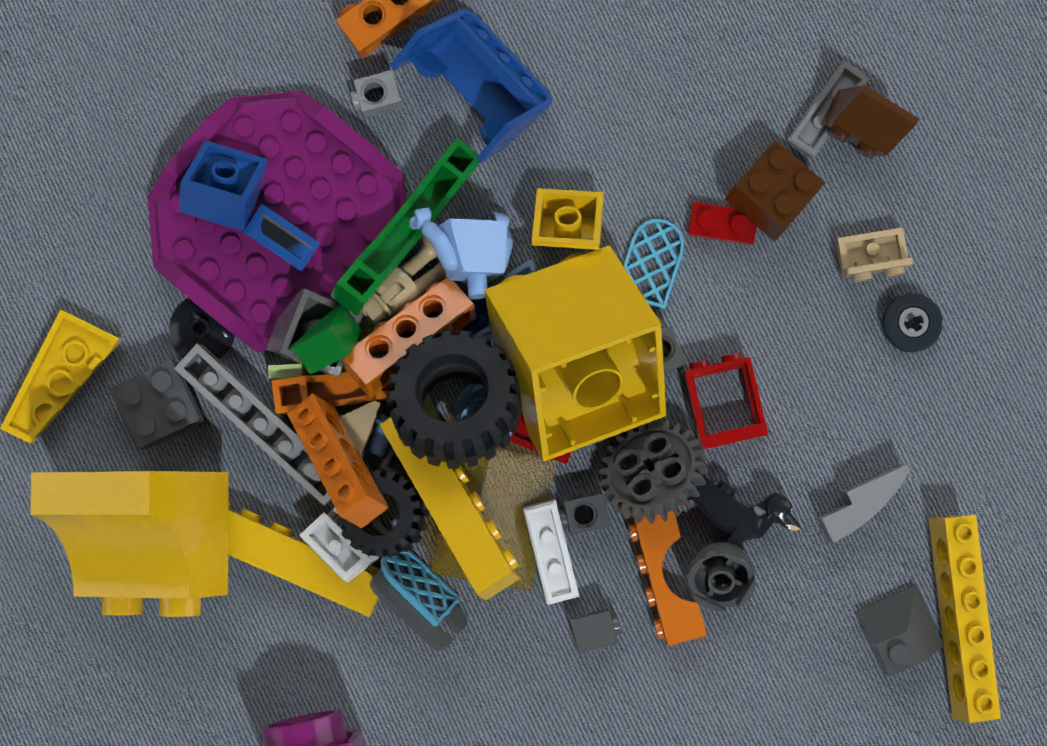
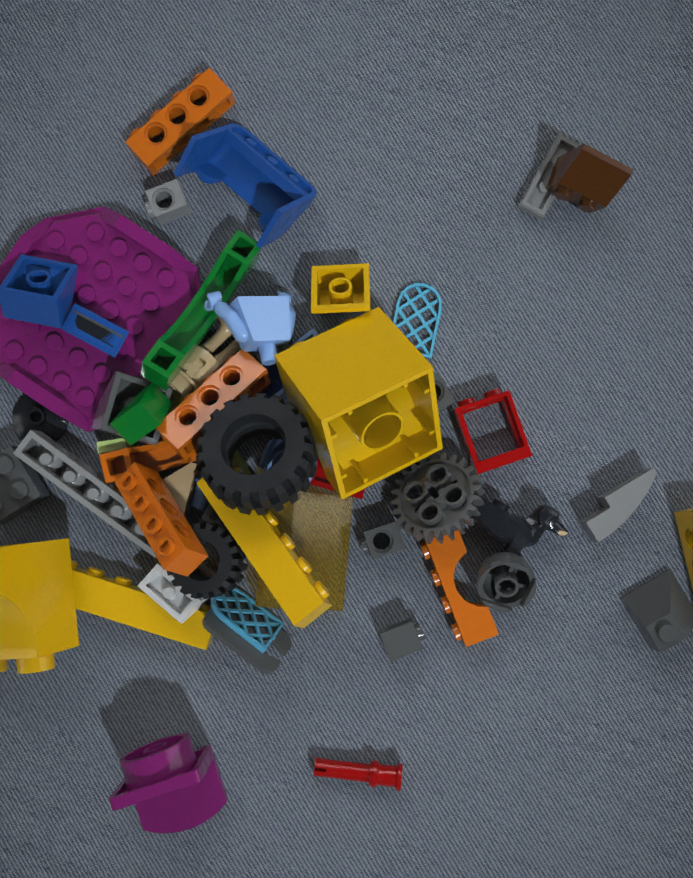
camera: 10 degrees left, 0 degrees up
(550, 551) = (356, 575): white tile -> none
(720, 224) = (472, 281): red plate -> none
(774, 190) = (514, 247): reddish brown brick -> none
(873, 253) = (602, 292): tan bracket -> none
(916, 306) = (642, 333): black bush -> none

